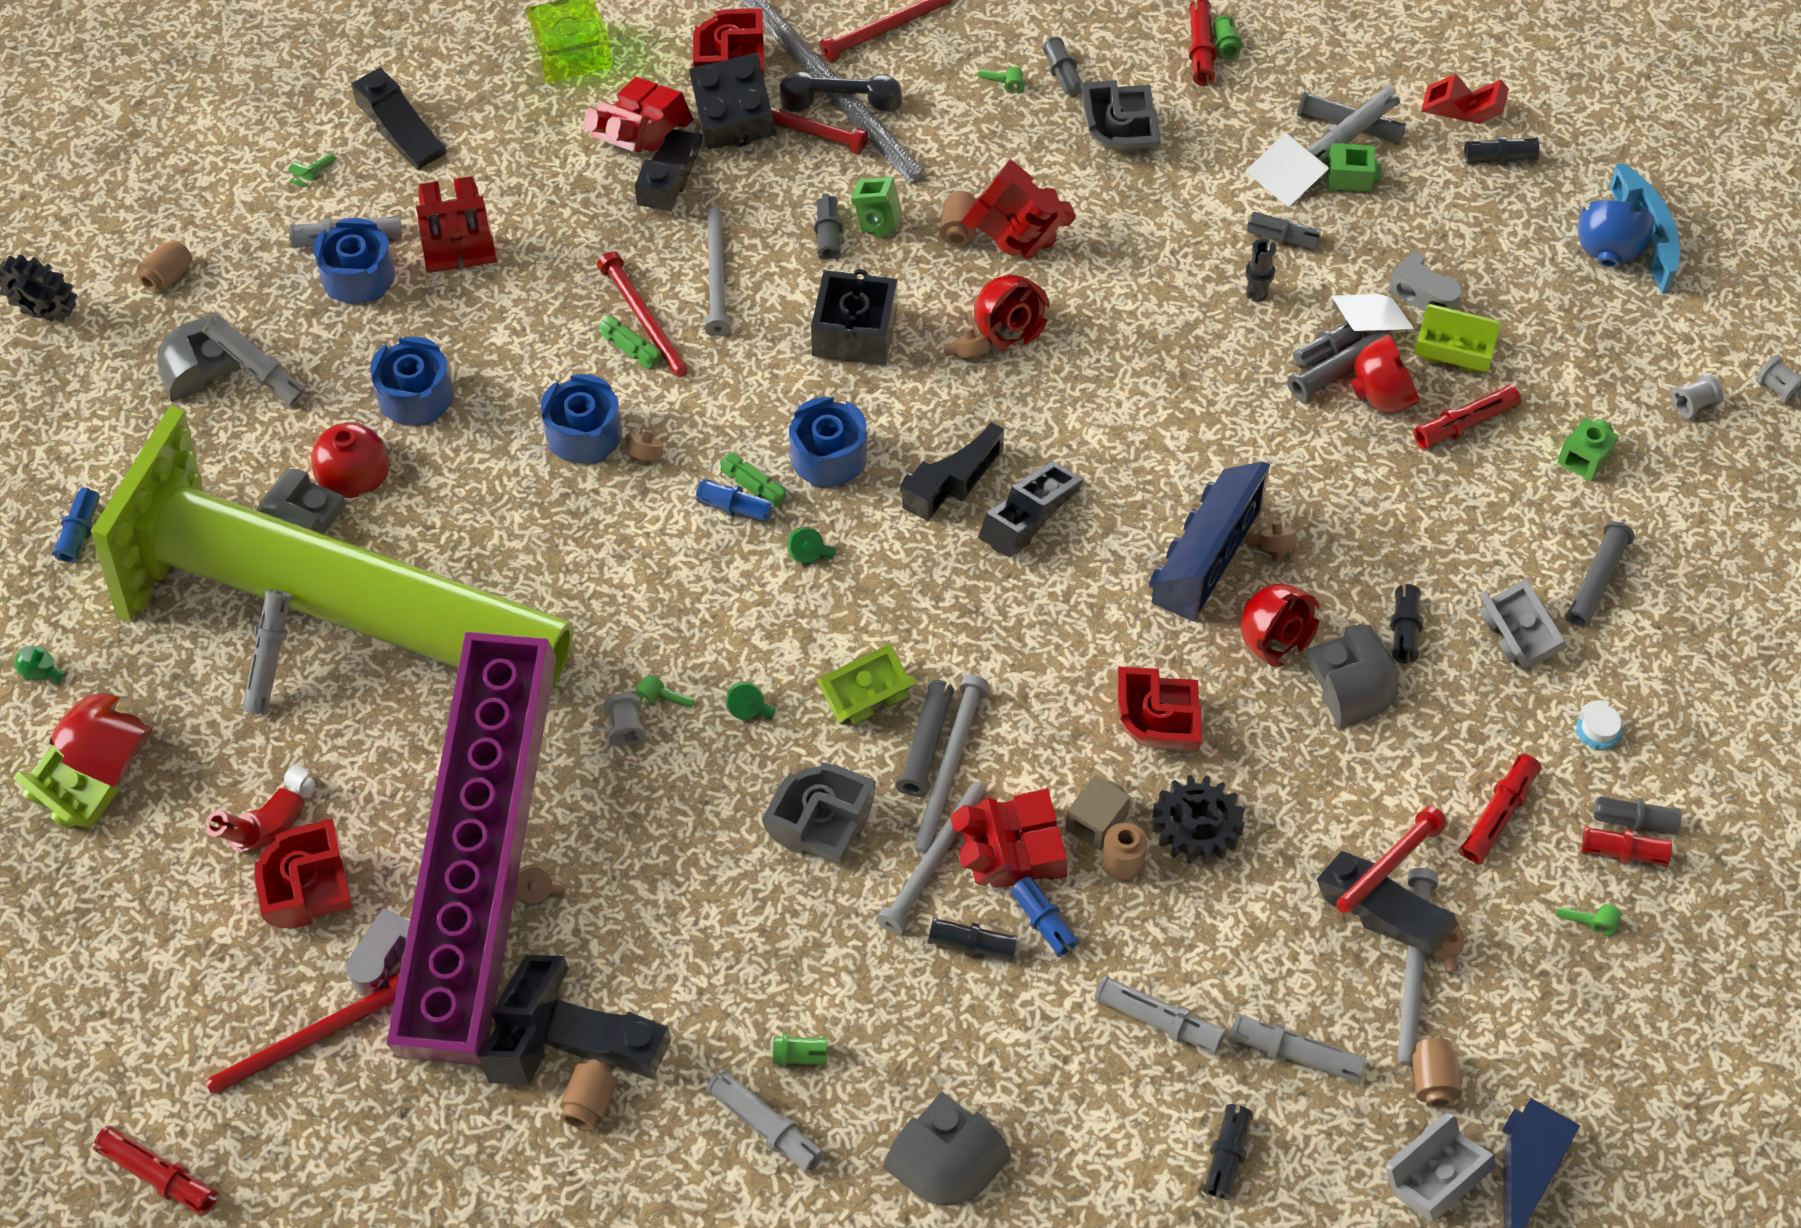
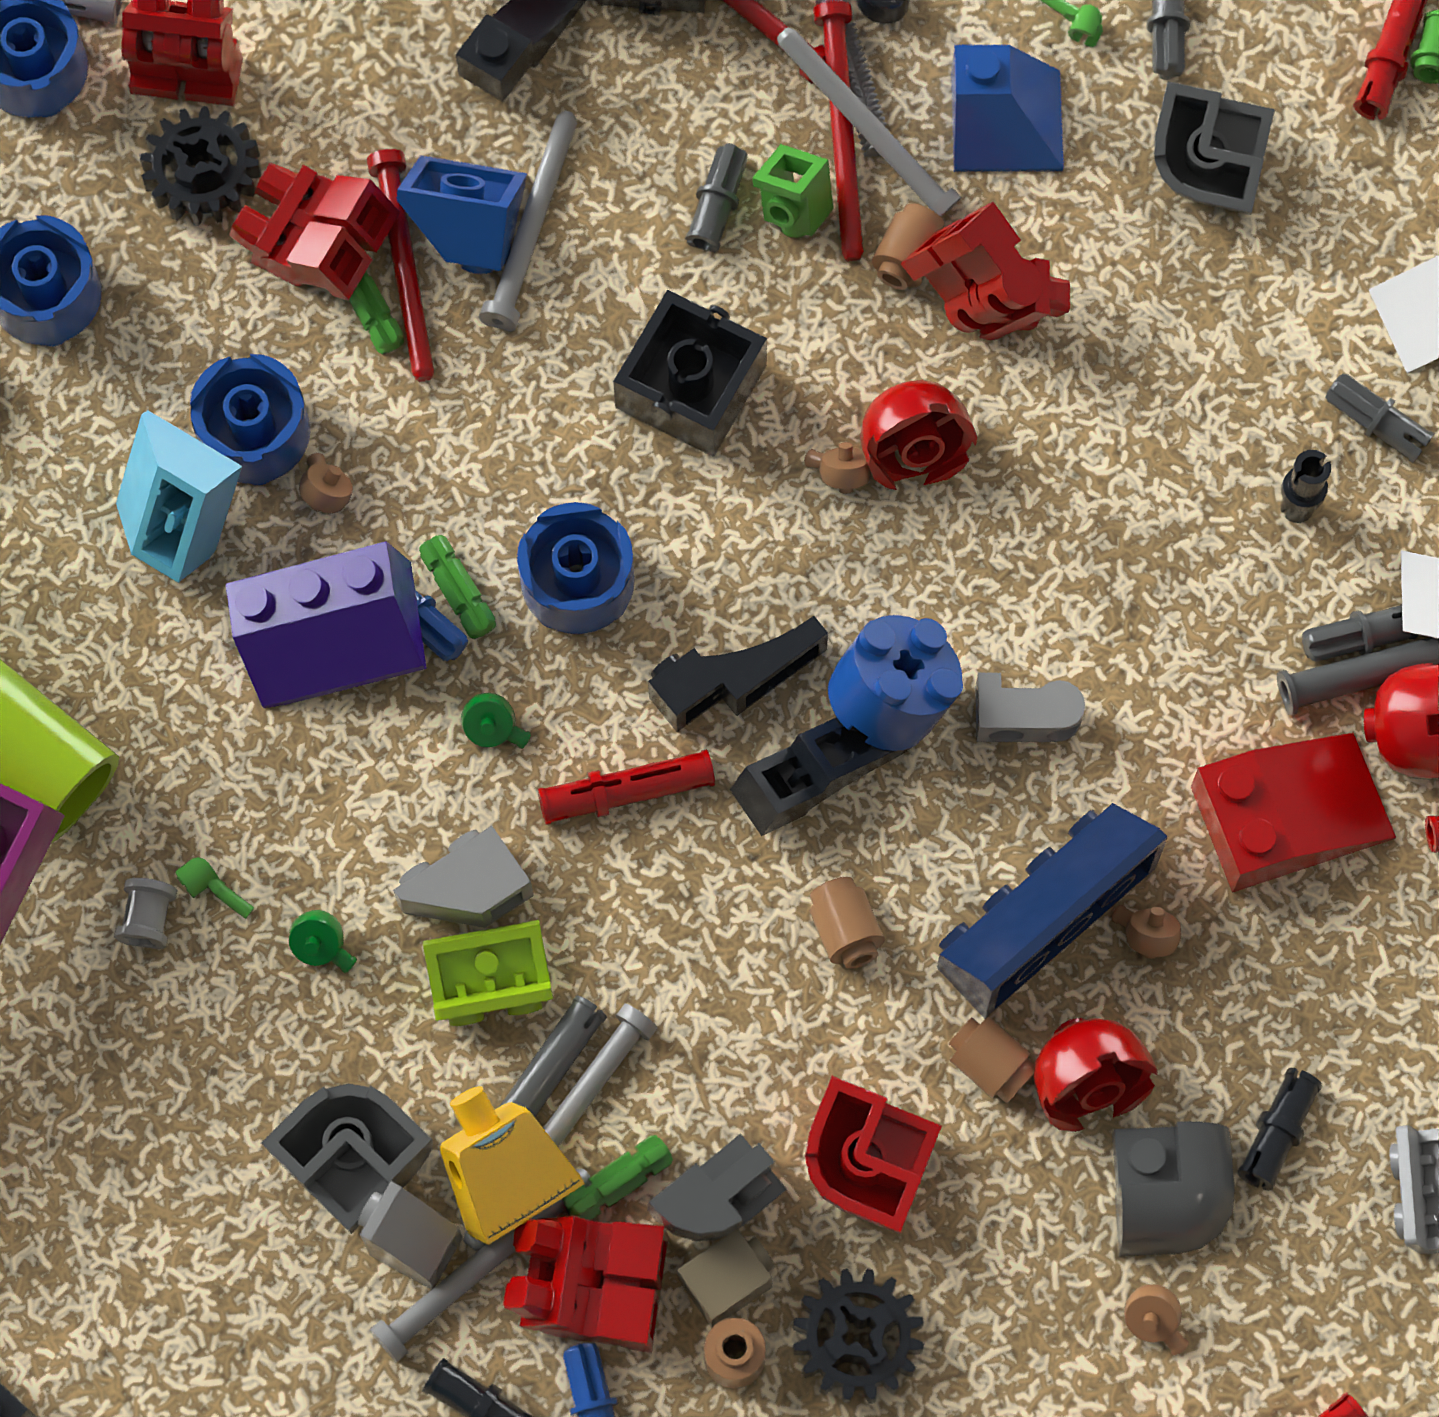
camera: 20 degrees right, 15 degrees up
(491, 294) = (207, 186): none -> black gear
(549, 471) = (174, 497): none -> medium azure slope
(580, 305) = (317, 228): none -> red hips
(676, 274) = (464, 210): none -> blue slope
(680, 515) = (327, 624): none -> dark purple slope
(833, 639) = (468, 885): none -> light grey slope
(861, 109) = (833, 18): none -> red bar
(881, 846) = (408, 1235): none -> light grey slope
(896, 564) = (625, 787): none -> red pin
(903, 156) = (867, 123): none -> light grey bar
(927, 783) = (502, 1166): none -> yellow torso
(983, 134) = (1005, 111): none -> blue slope
(1004, 776) = (619, 1179): none -> bright green axle
(1058, 442) = (896, 681): none -> blue brick
(1074, 756) = (719, 1194): none -> dark grey brick
(1084, 590) = (846, 922): none -> medium nougat brick
(1143, 443) = (1026, 713): none -> light grey leg
(1210, 638) = (991, 1058): none -> medium nougat brick
(1326, 450) = (1289, 808): none -> red slope
(1378, 750) = (1154, 1316): none -> medium nougat piece

